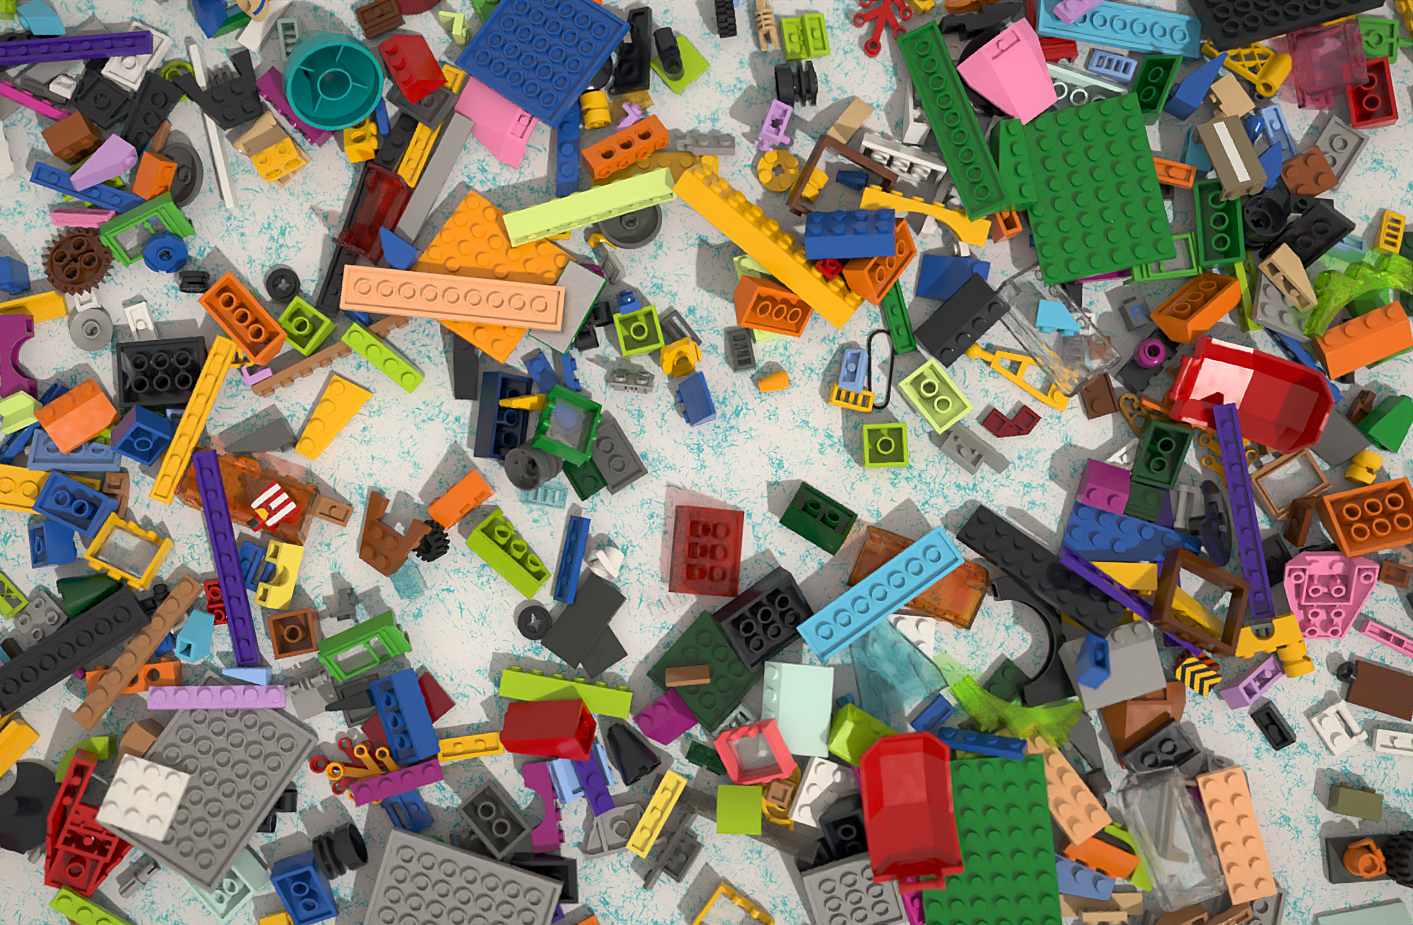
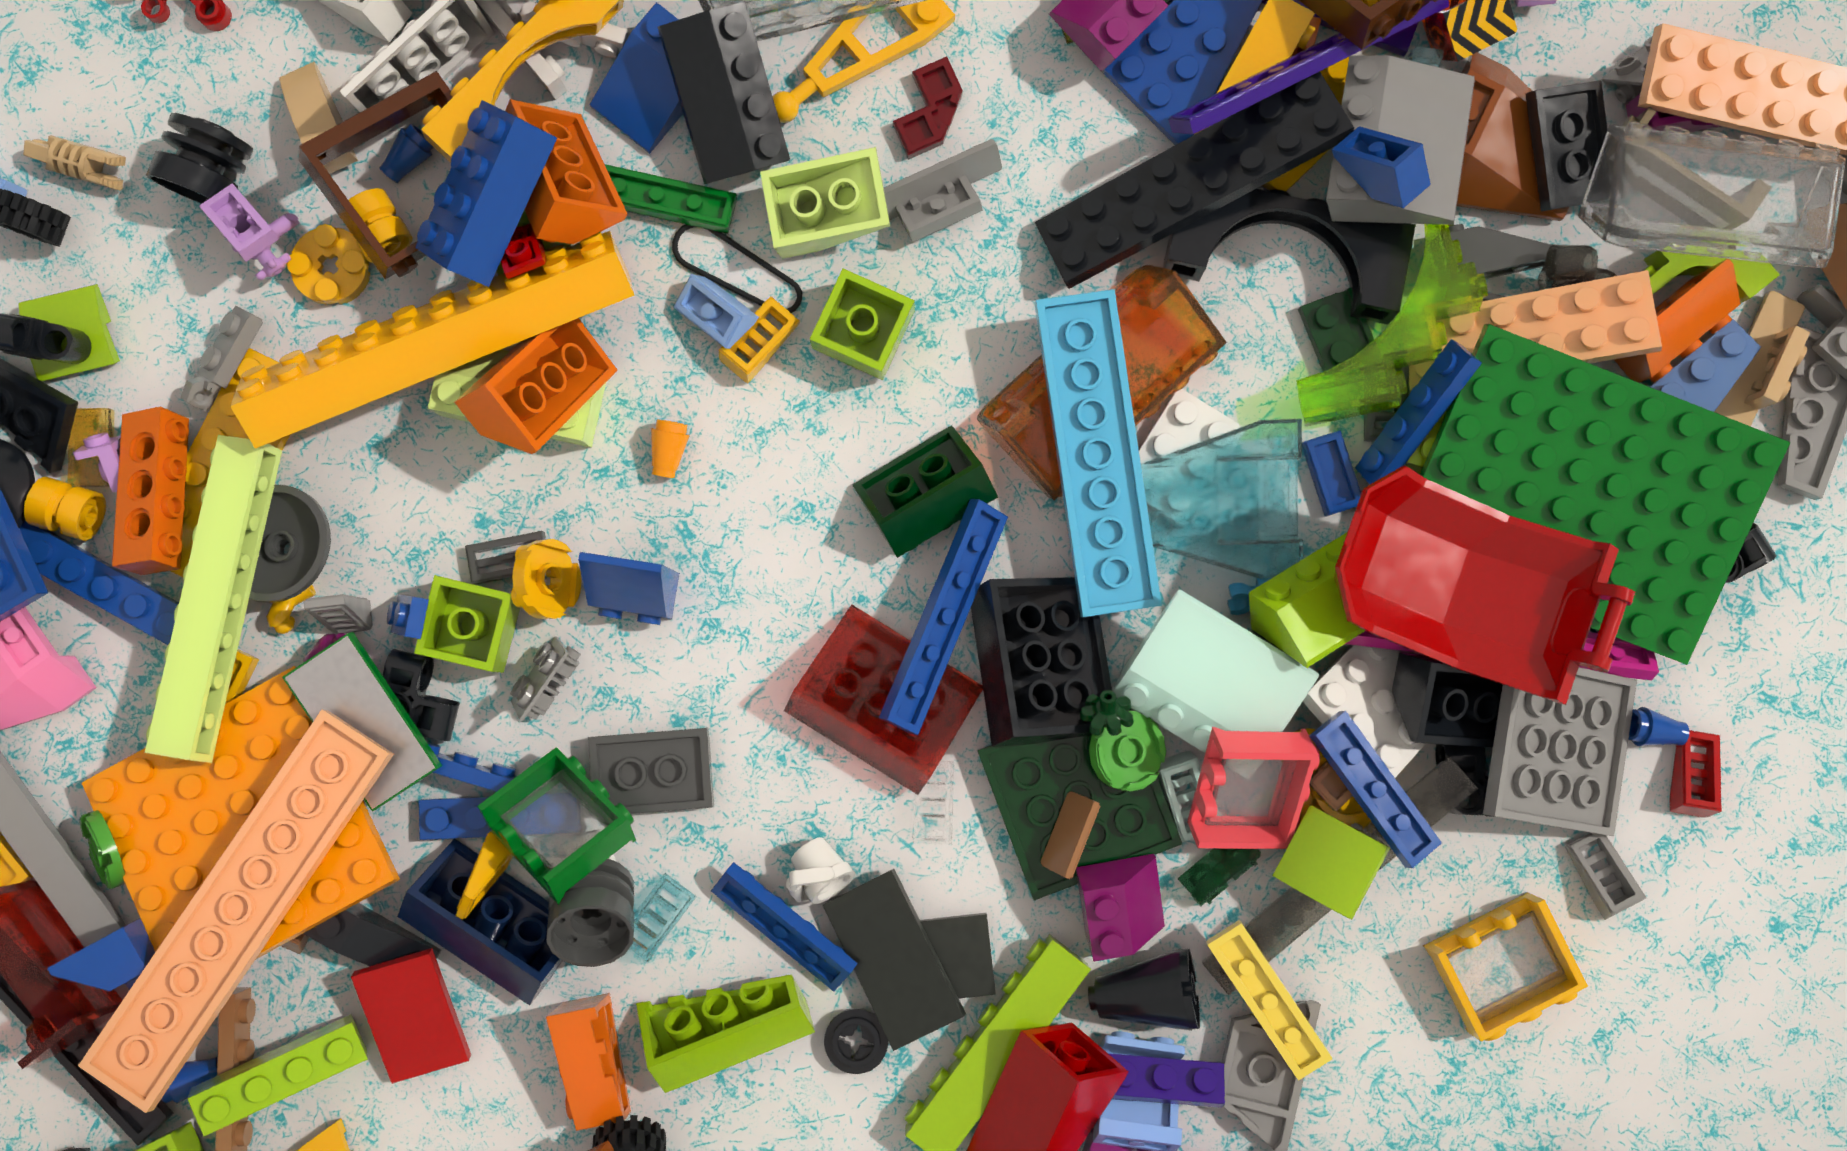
camera: 65 degrees left, 0 degrees up
(439, 403) = (411, 1015): none -> red tile
(444, 217) = (102, 849): none -> bright green tile
(586, 479) = (661, 836): dark green plate -> none
(678, 855) = (1352, 997): dark grey bracket -> none
(742, 683) = (1130, 758): none -> bright green tile
(745, 366) = (618, 482): dark grey slope -> none
(755, 663) = (1107, 712): none -> dark green plant
(761, 559) = (943, 617): none -> blue plate
(785, 813) = (1375, 789): none -> plate
(804, 37) = (134, 110): lime slope -> none

